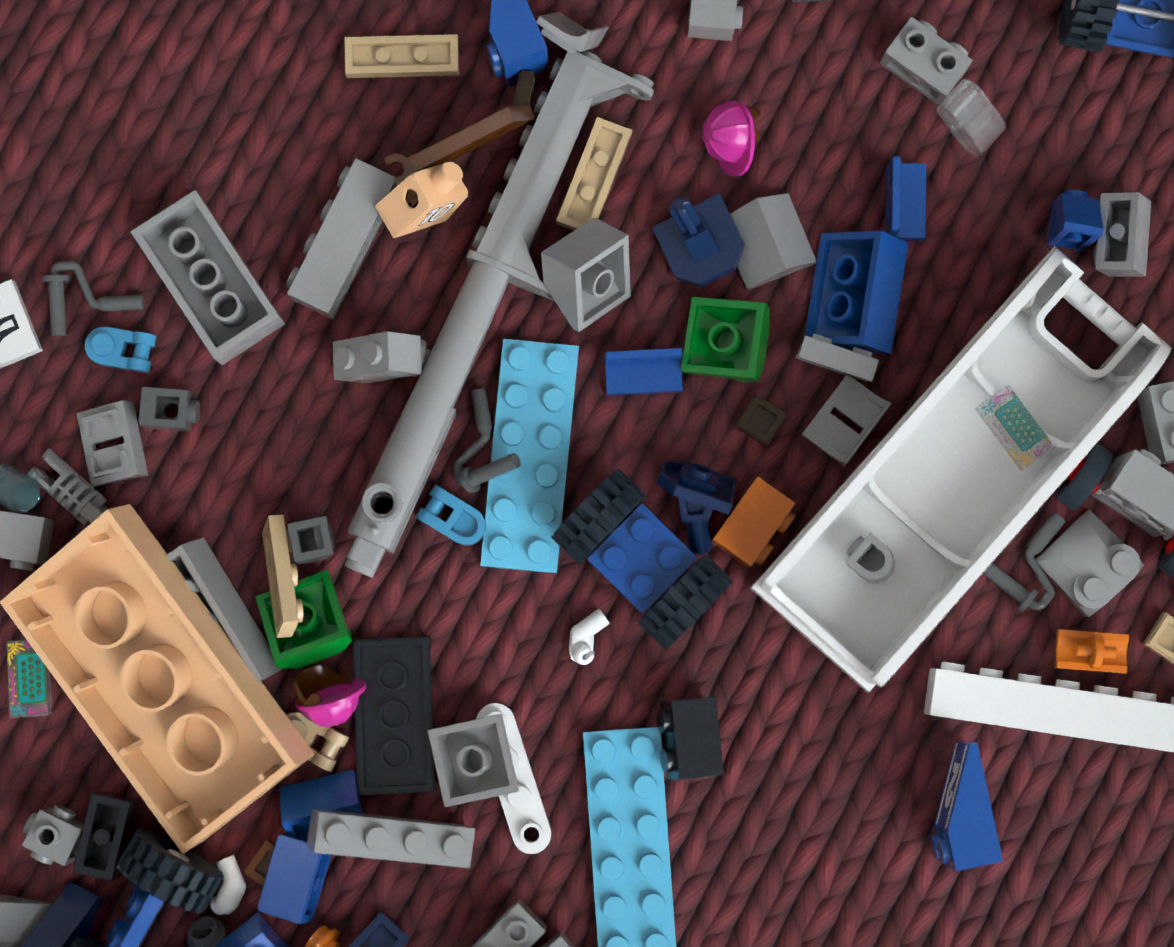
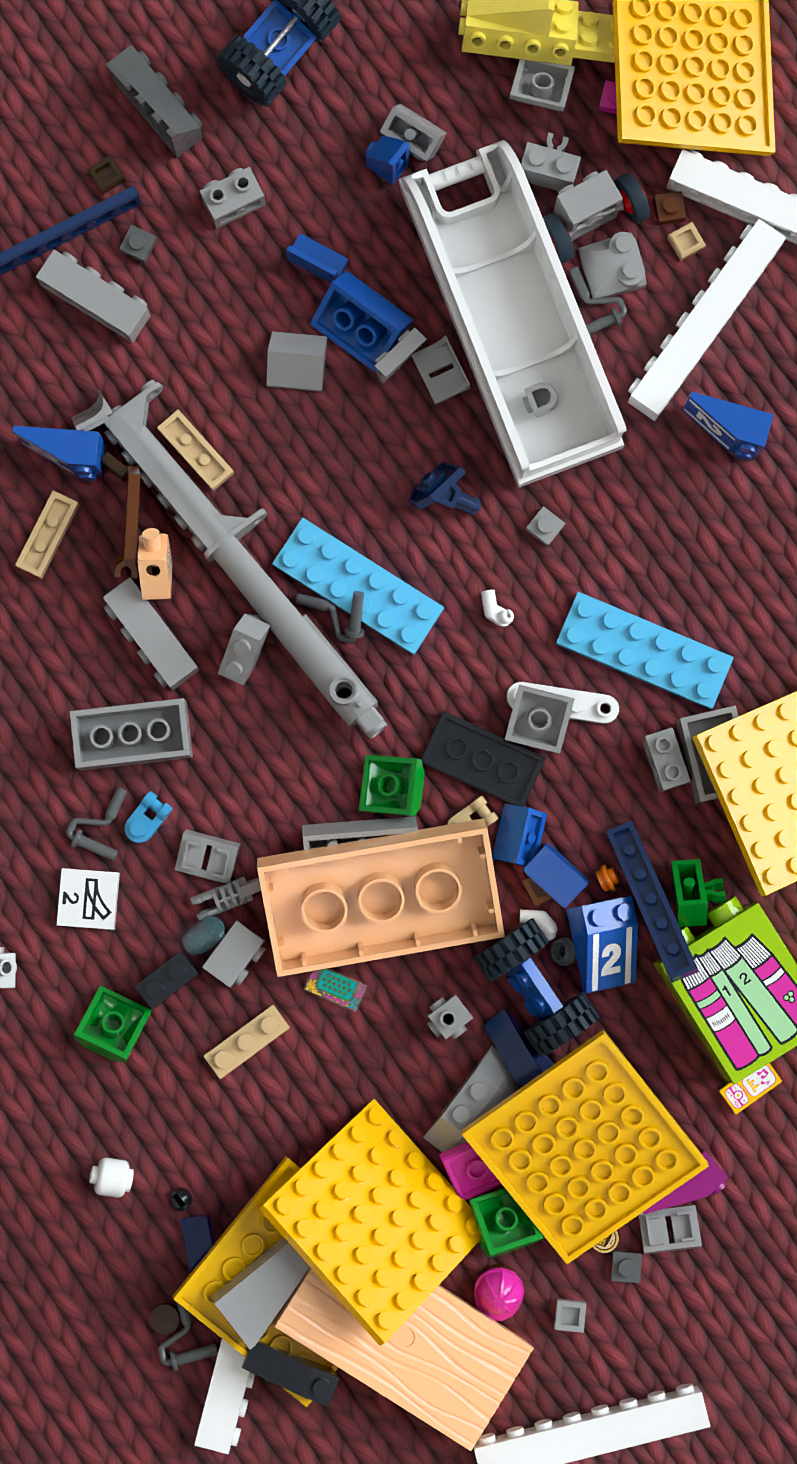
camera: 65 degrees left, 0 degrees up
(106, 834) = (466, 982): black brick -> none
(155, 405) = (194, 808): dark grey brick -> none
(281, 576) = (355, 784): tan plate -> none
(311, 540) = (342, 752): dark grey brick -> none
(326, 696) = (449, 795): piece -> none
(390, 838) = (562, 797): light grey brick -> none
(463, 526) = (381, 649): dark azure plate -> none
(588, 272) = (258, 484): light grey slope -> none
(641, 558) = (465, 544): plate -> none
(643, 372) = (341, 484): blue panel -> none
(690, 738) = (595, 574): black brick -> none
(700, 240) = (275, 403): dark blue piece -> none
(721, 645) = (545, 526): none -> light grey plate
(726, 339) = (348, 419): green slope -> none
(731, 136) = (217, 346): dark pink piece -> none
(754, 523) = (476, 459): orange brick -> none
(761, 420) = (412, 425): dark brown tile -> none
(971, 117) = (286, 187): clear beam -> none
(1014, 427) = (503, 265): clear tile -> none
(1091, 651) = (669, 293): orange hips -> none

